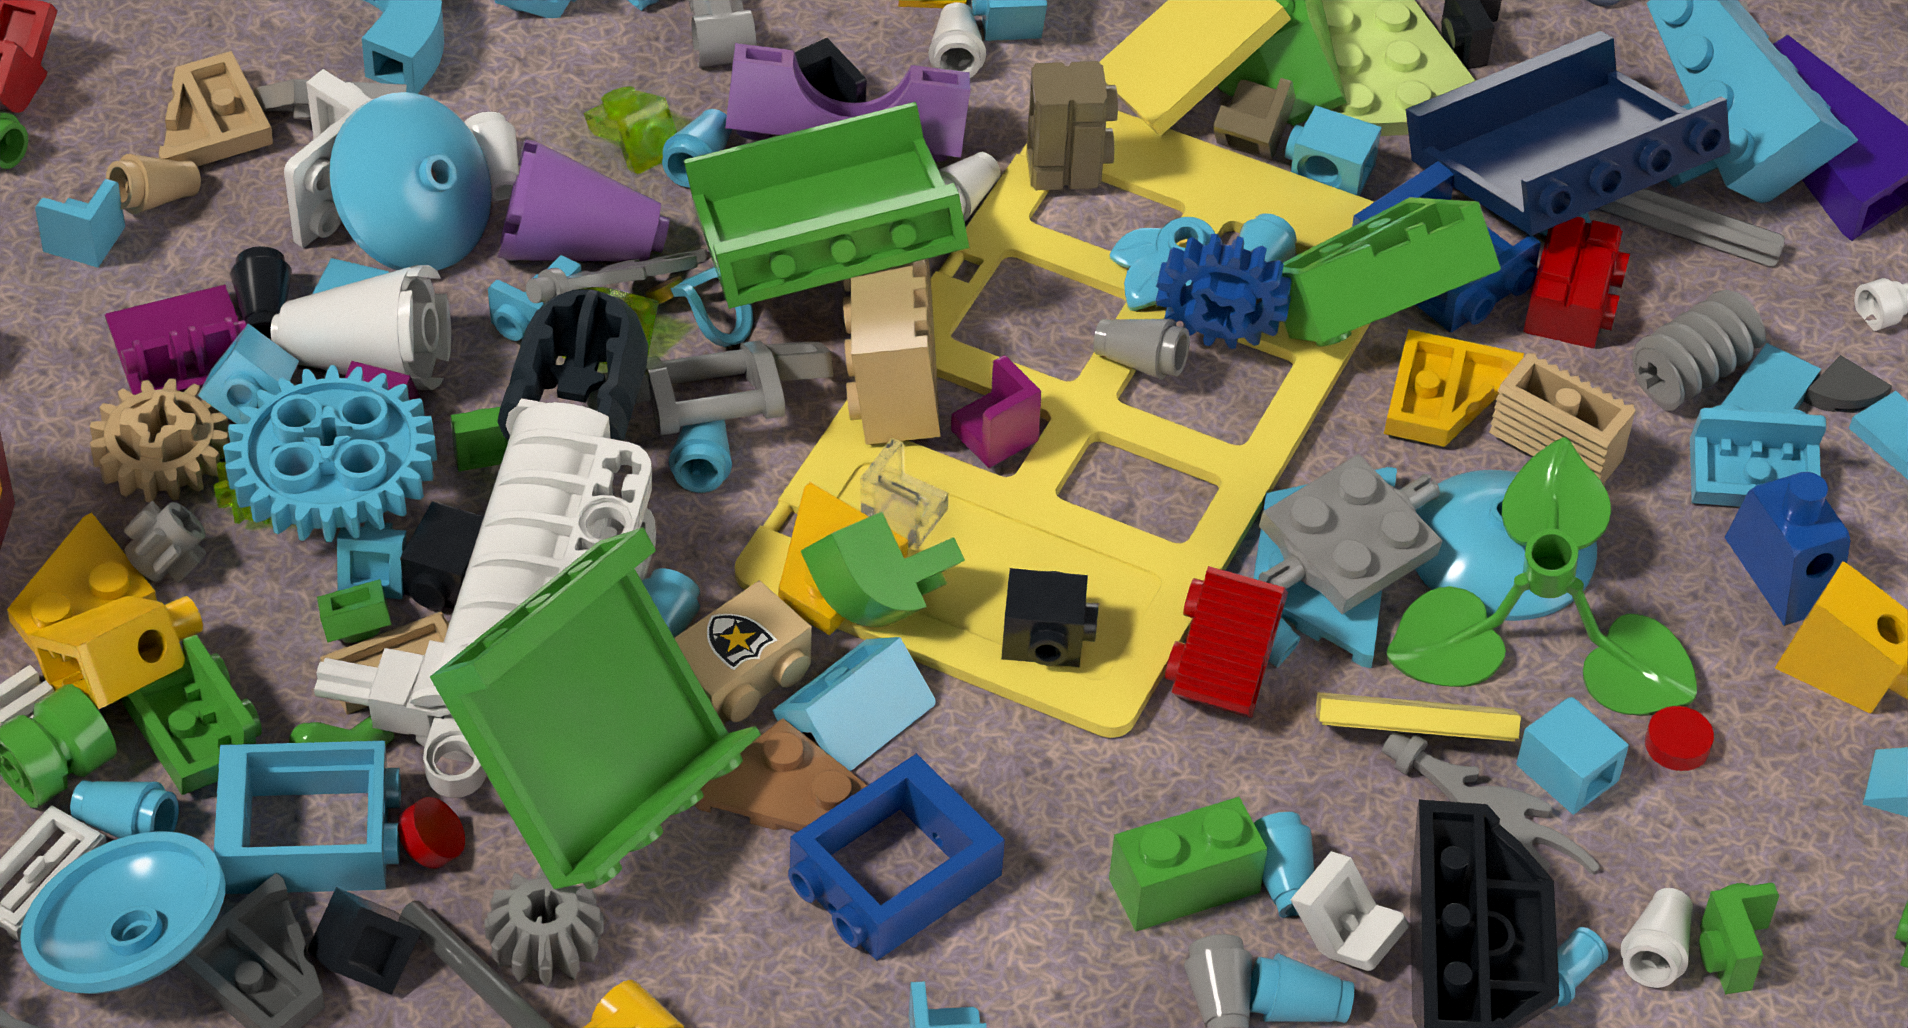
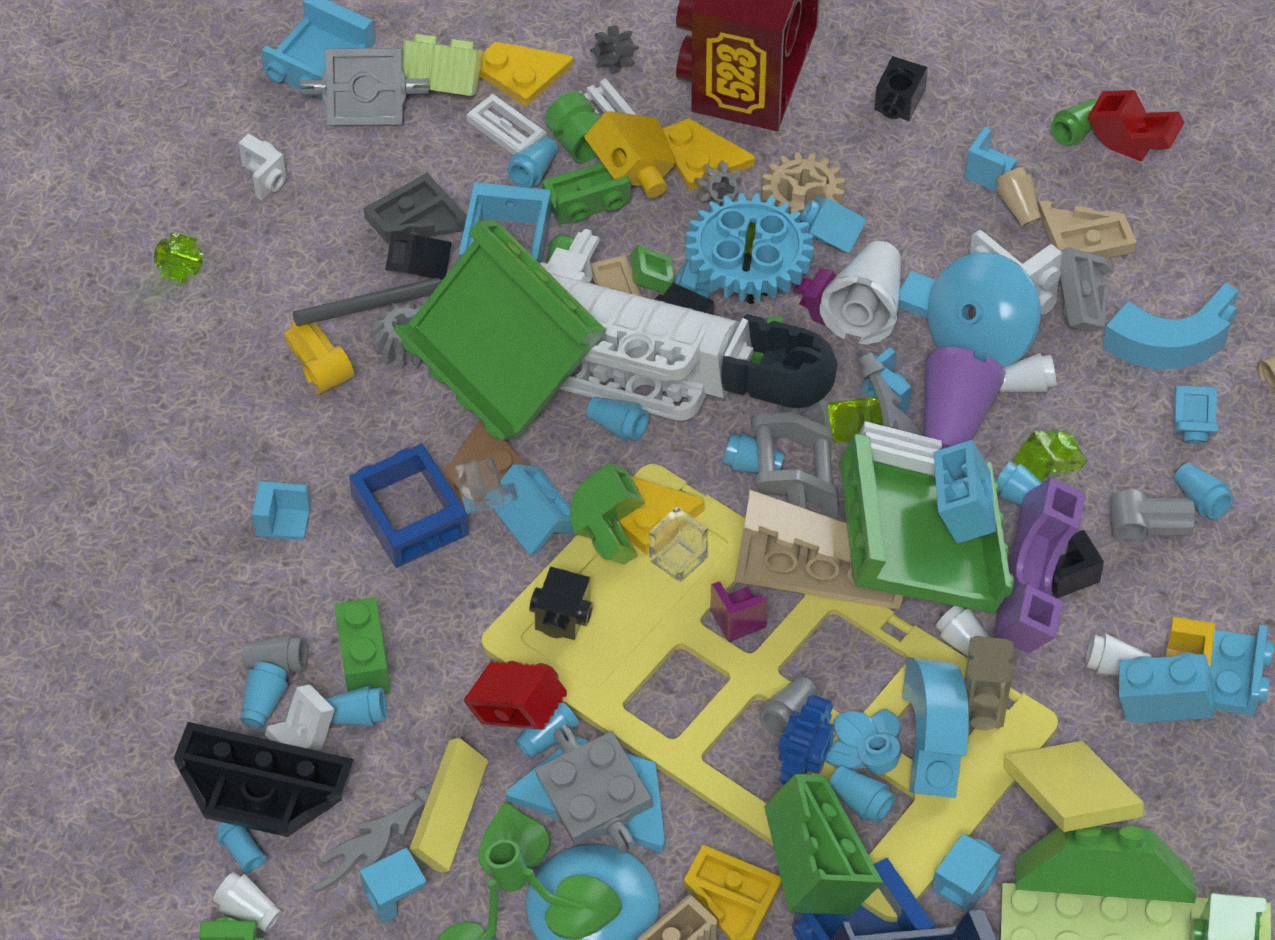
camera: 105 degrees right, 5 degrees up
(123, 913) = (450, 145): medium azure dish -> none
(174, 338) = (892, 207): magenta hinge -> none
(261, 285) = (922, 247): black cone -> none
(688, 226) = (902, 448): none -> white tile
(747, 650) = (572, 444): tan brick -> none
(769, 154) = (964, 491): none -> medium azure brick
(872, 733) = (482, 486): none -> clear panel
(1122, 159) = (942, 724): none -> medium azure arch
(1255, 118) = (1004, 828): dark tan panel -> none

